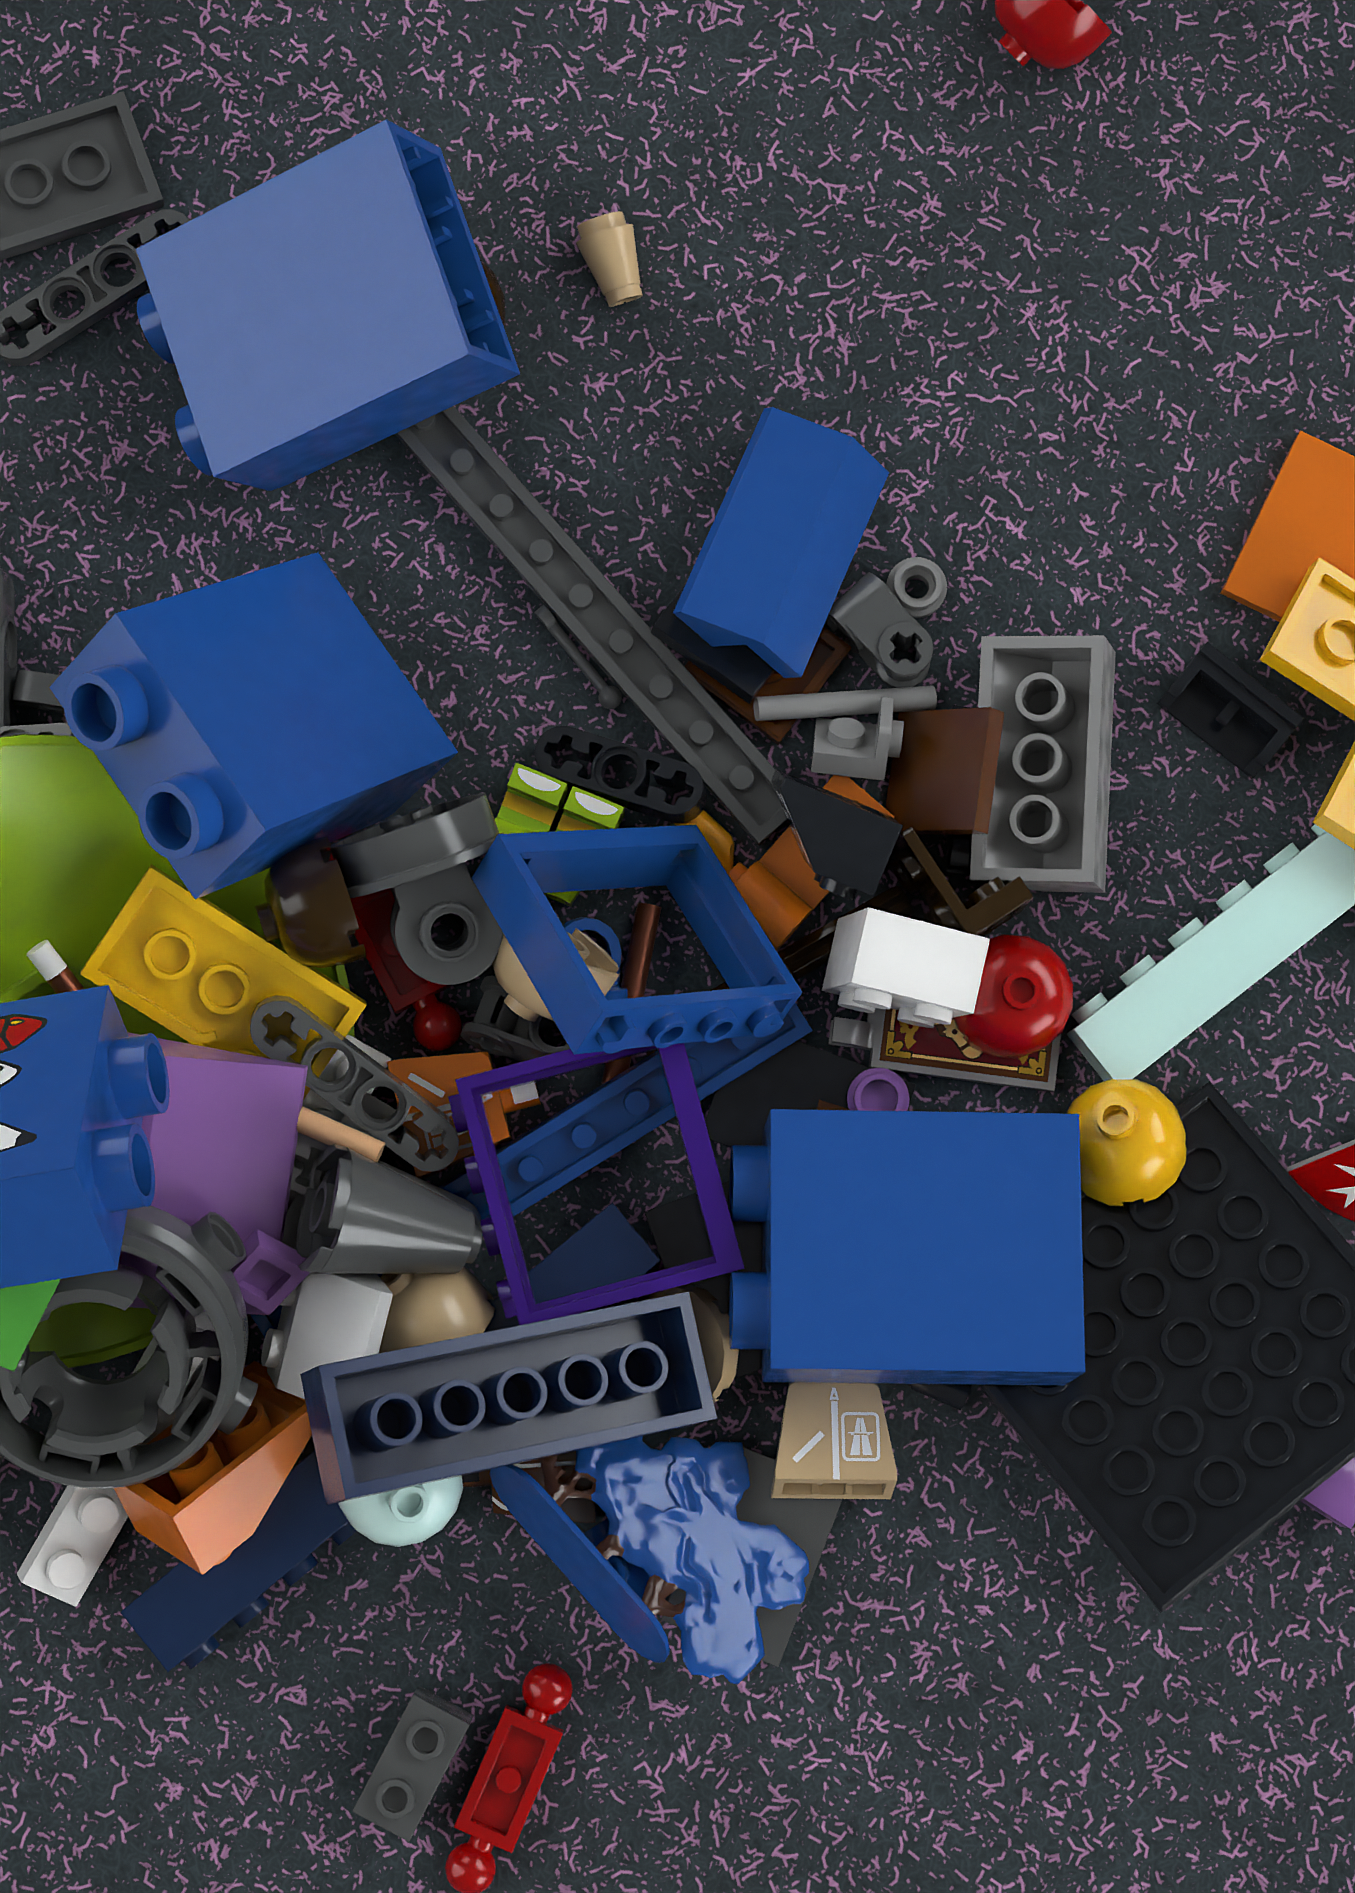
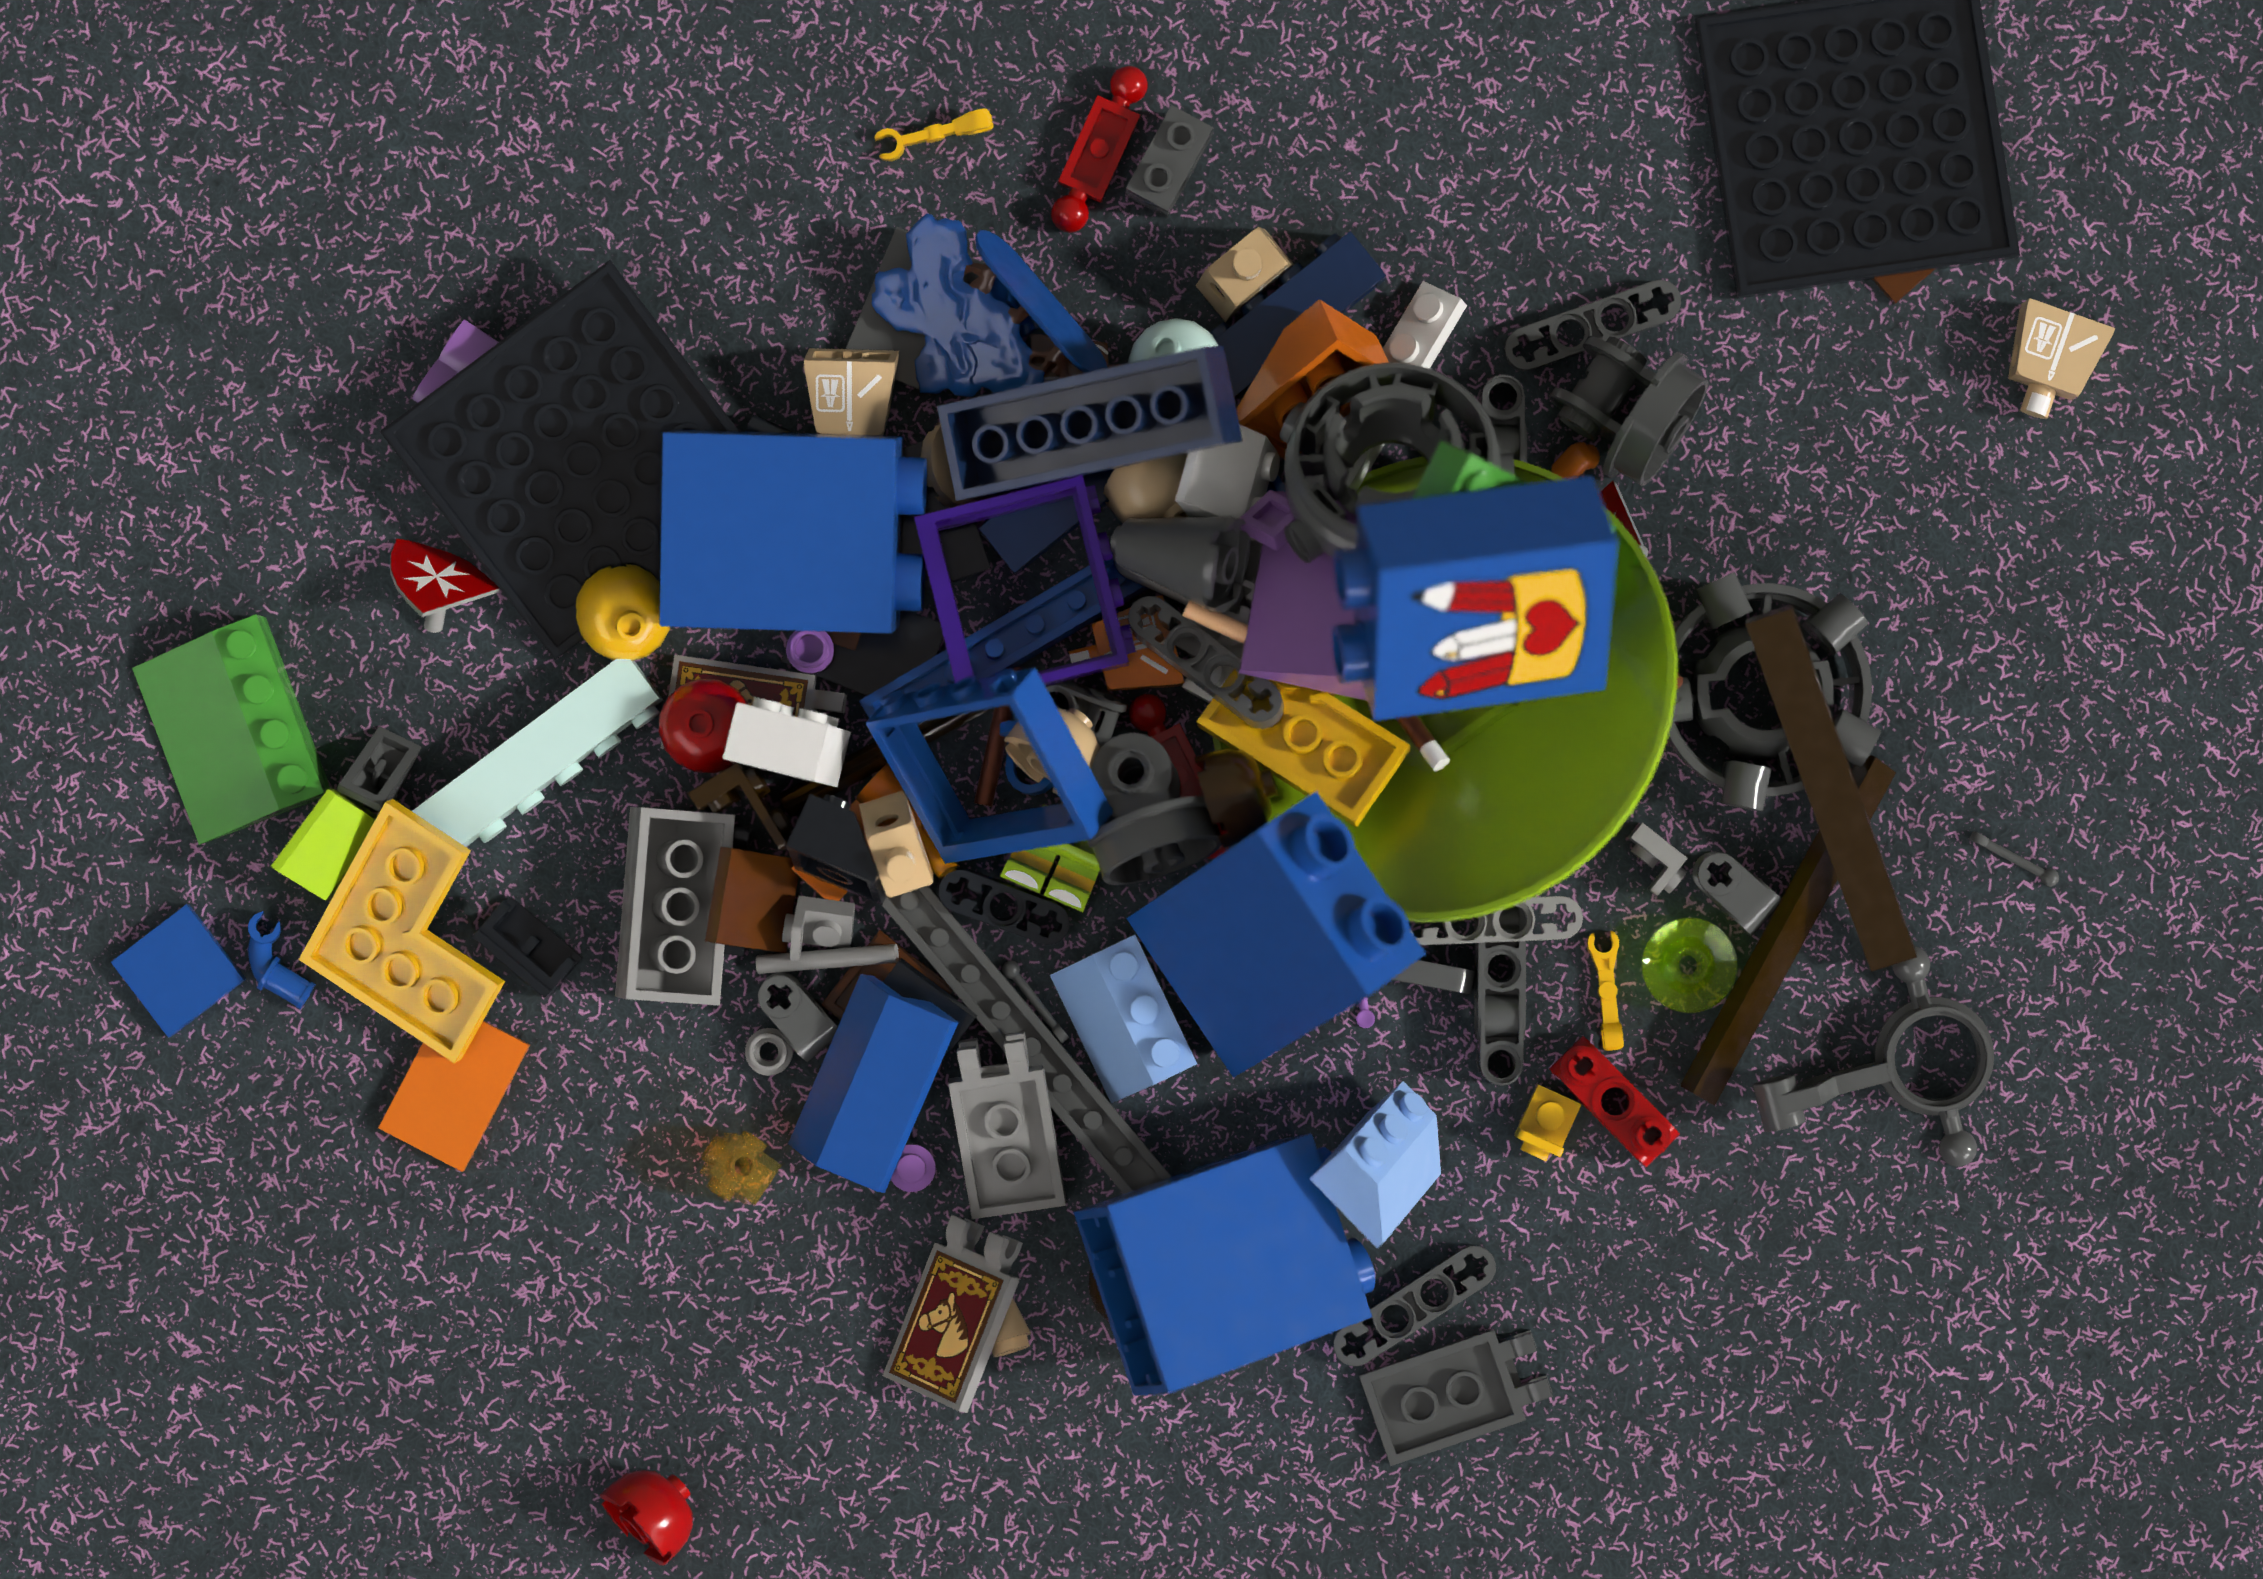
camera: 175 degrees left, 5 degrees up
(127, 447) = (1383, 1164): none -> light blue slope
(314, 1610) = (1243, 272): none -> tan torso
(462, 633) = (1123, 1019): none -> light blue slope
(611, 489) = (1005, 1132): none -> light grey tile
(671, 258) = (955, 1315): none -> tile
(685, 1809) = (967, 124): none -> yellow piece
(725, 443) = (914, 1169): none -> medium lavender plate
(755, 825) = (896, 847): none -> tan torso
(950, 436) = (755, 1168): none -> clear yellow brick

